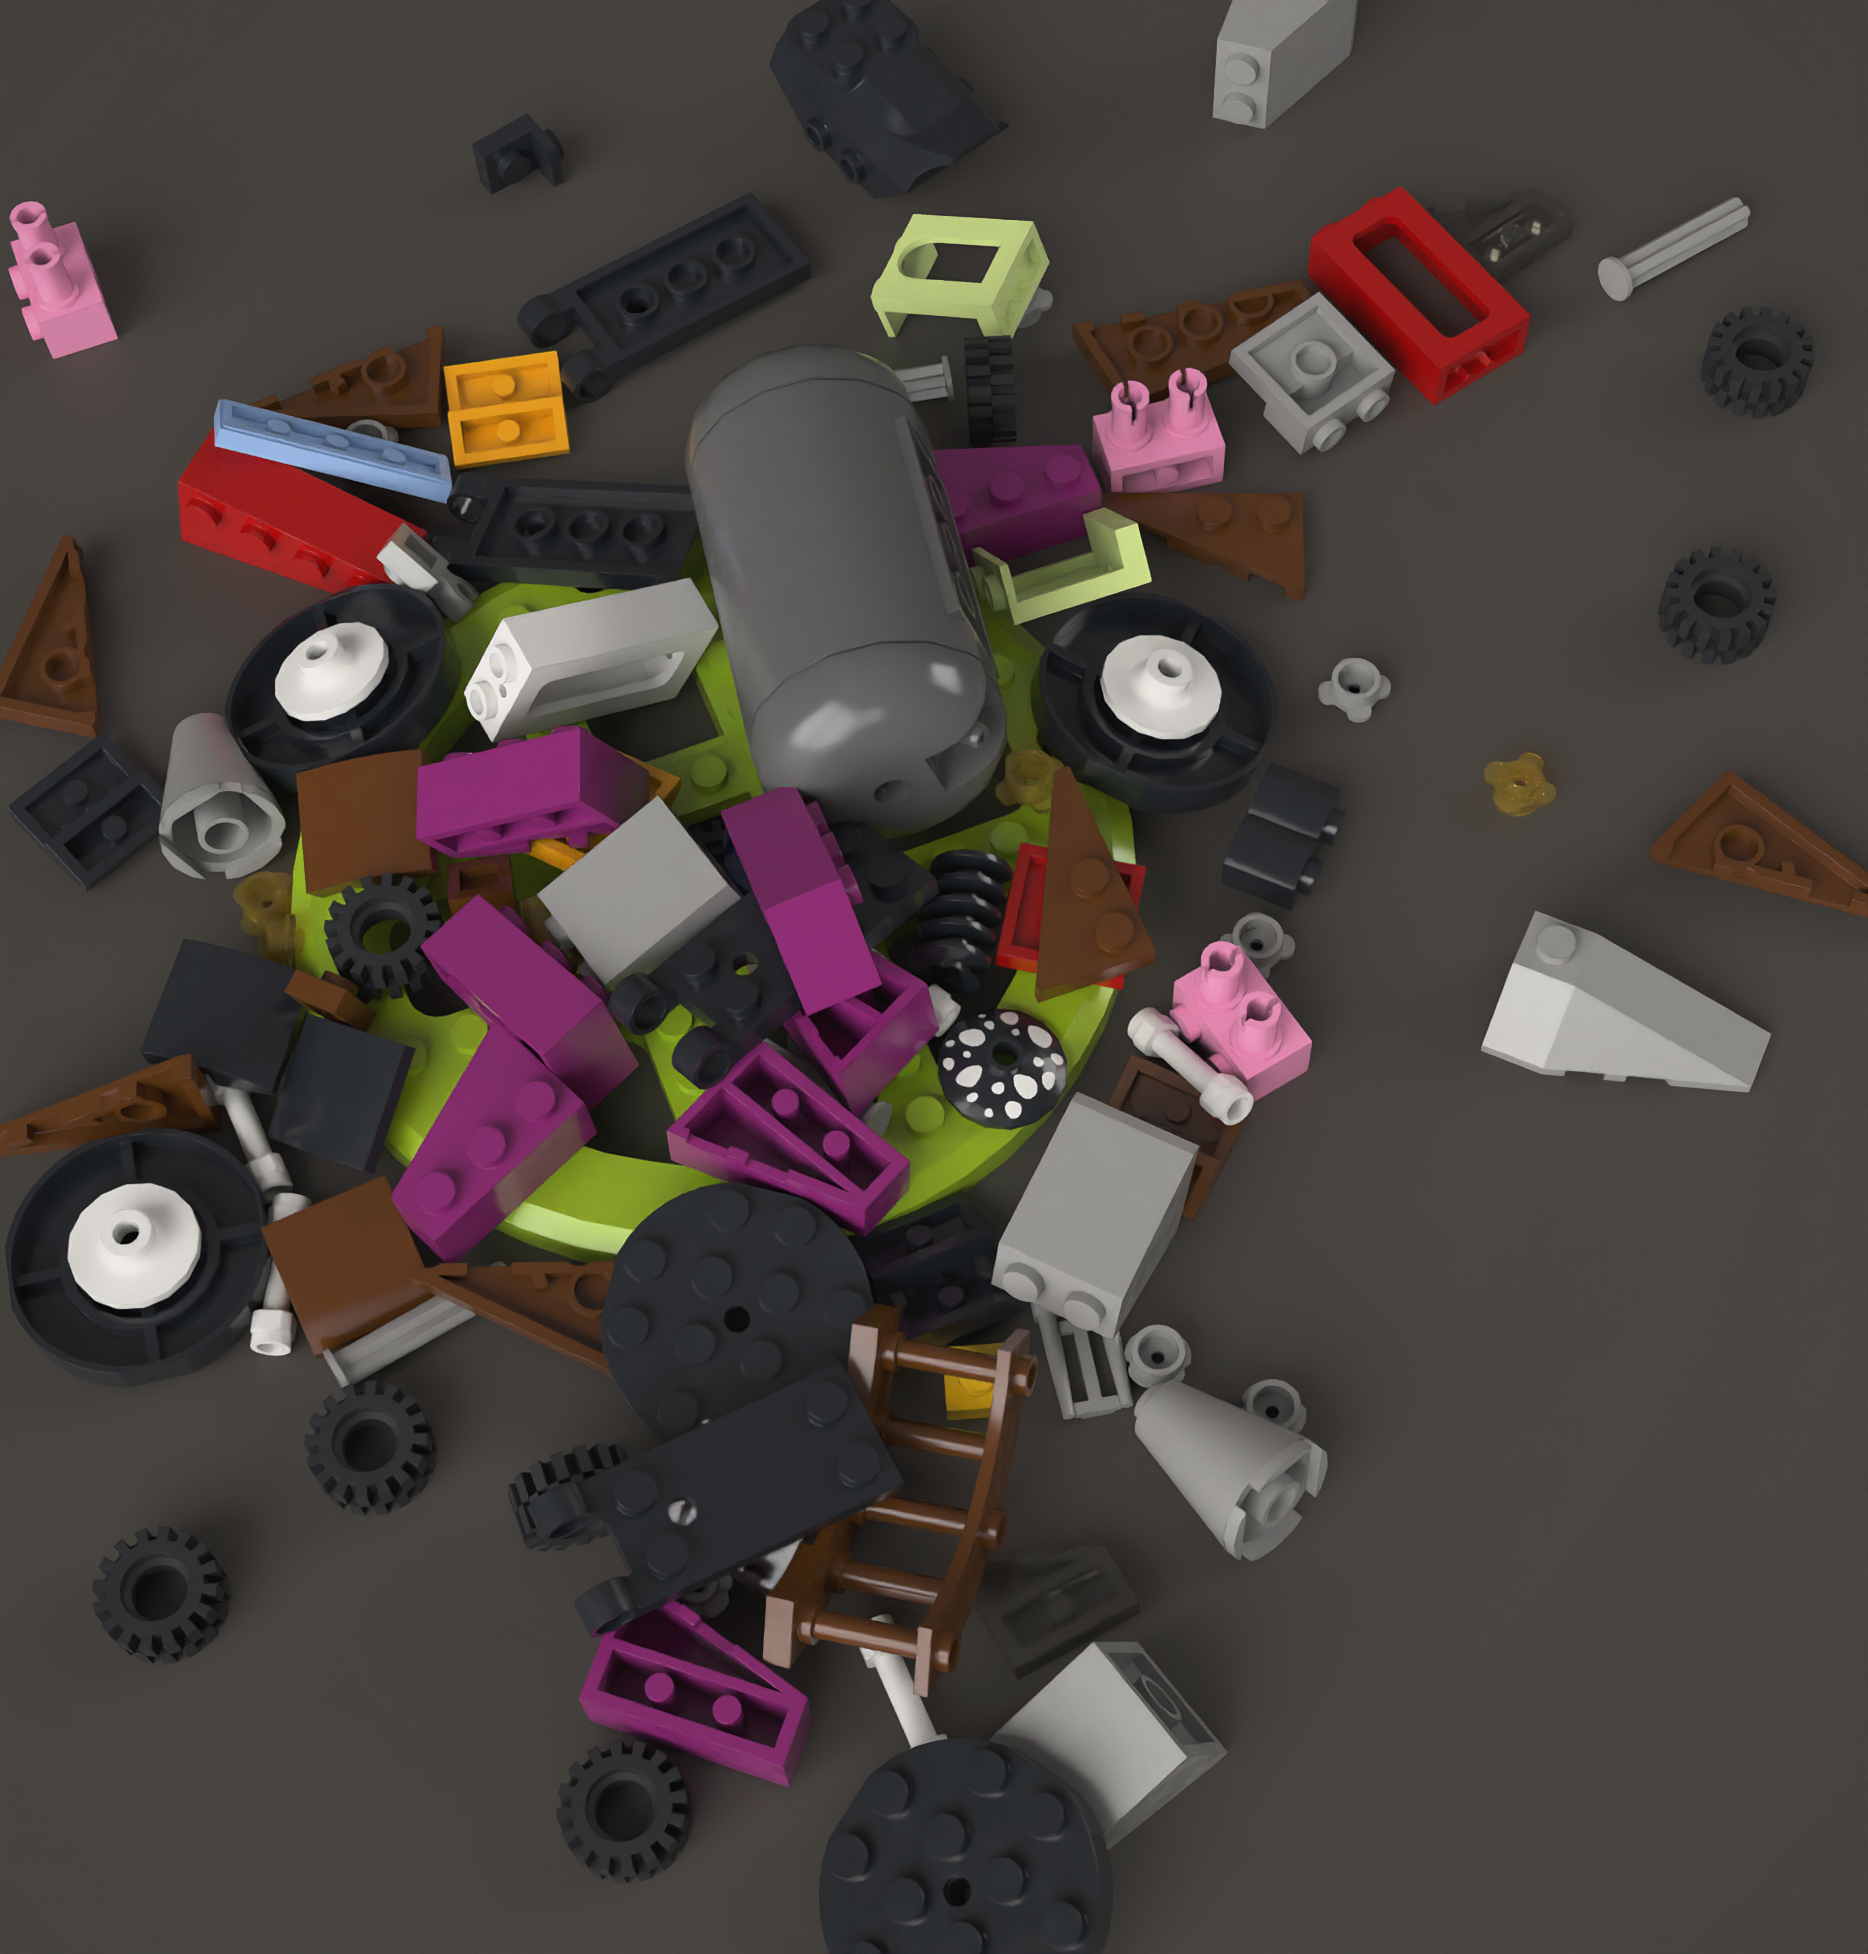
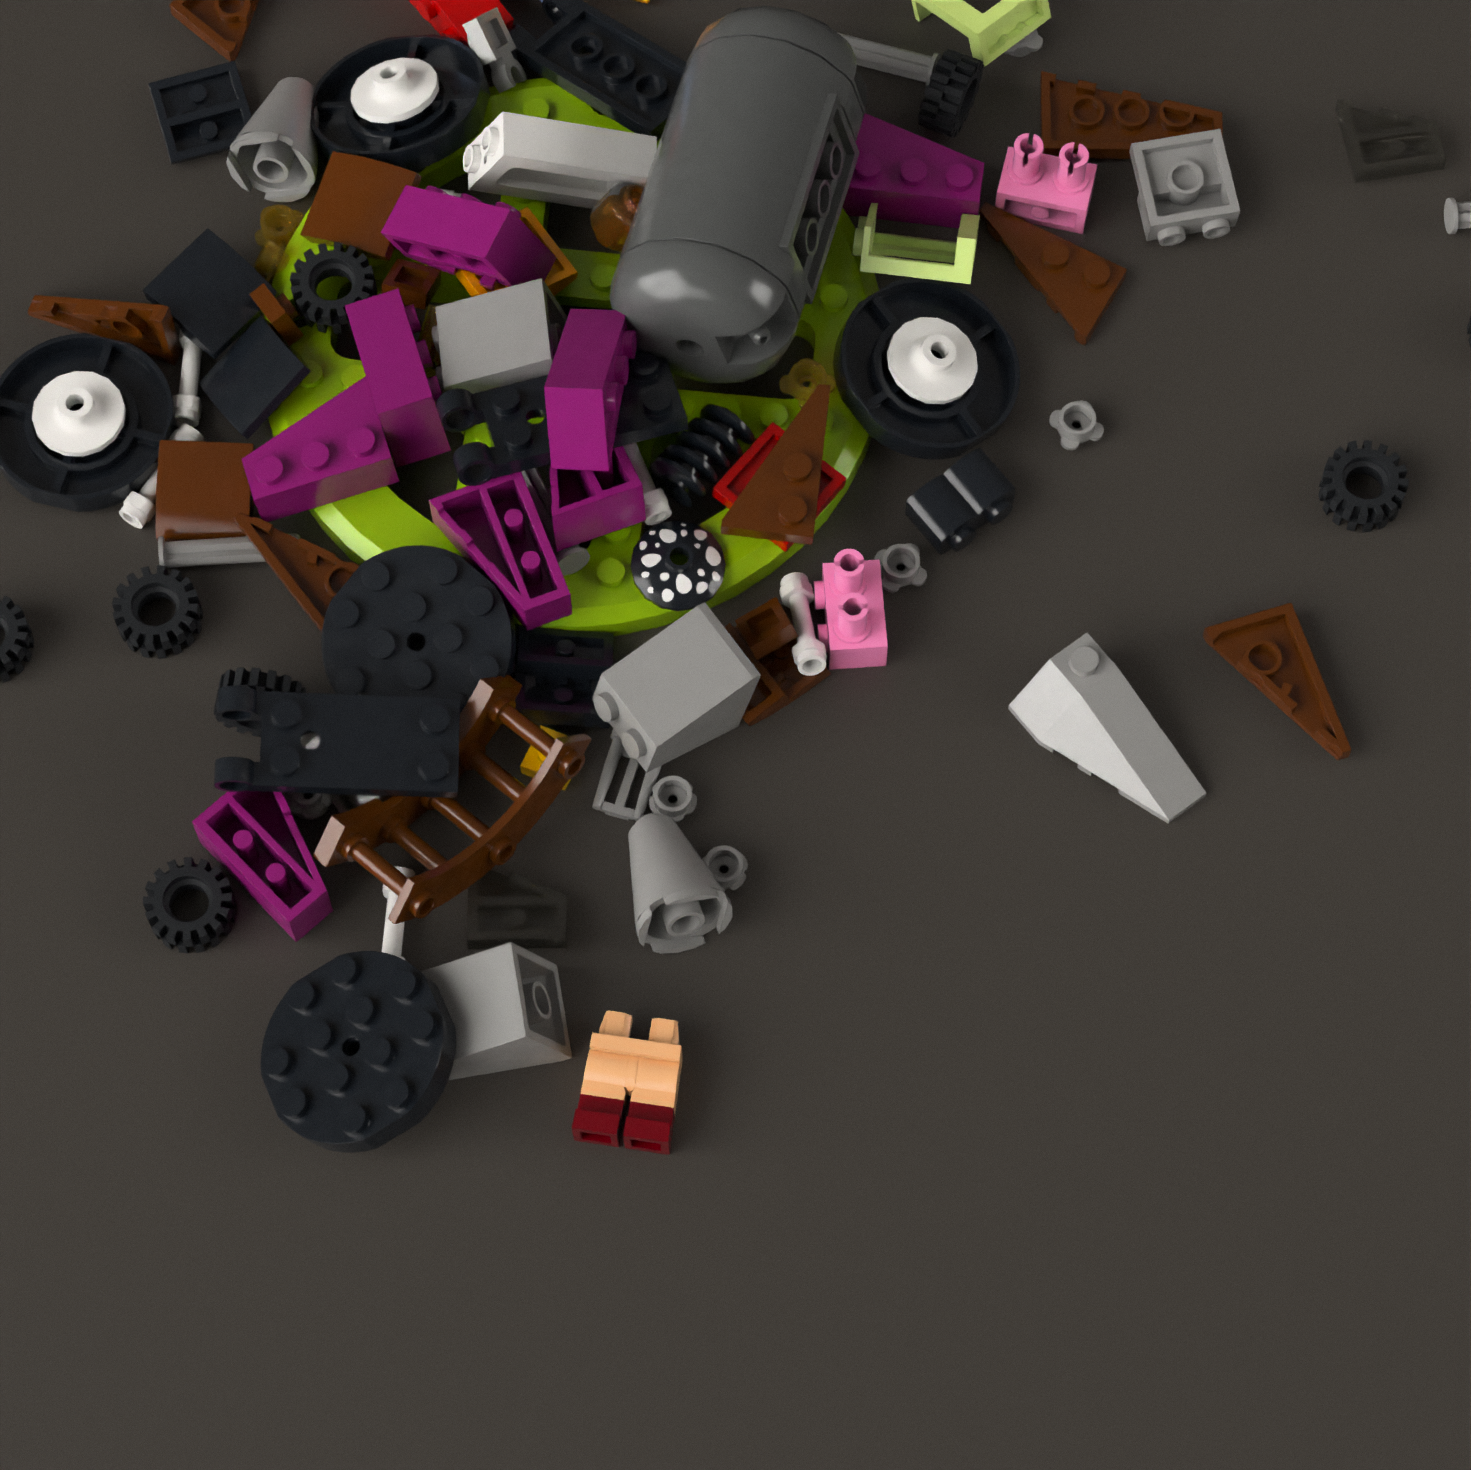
camera: 25 degrees right, 5 degrees up
(697, 691) = (614, 215): none -> clear orange head
(1154, 1090) = (766, 628): none -> reddish brown plate
(1325, 1725) = (633, 1068): none -> light nougat hips
(1419, 351) = (1280, 219): red piece -> none
(1517, 799) = (1143, 556): clear yellow plate -> none

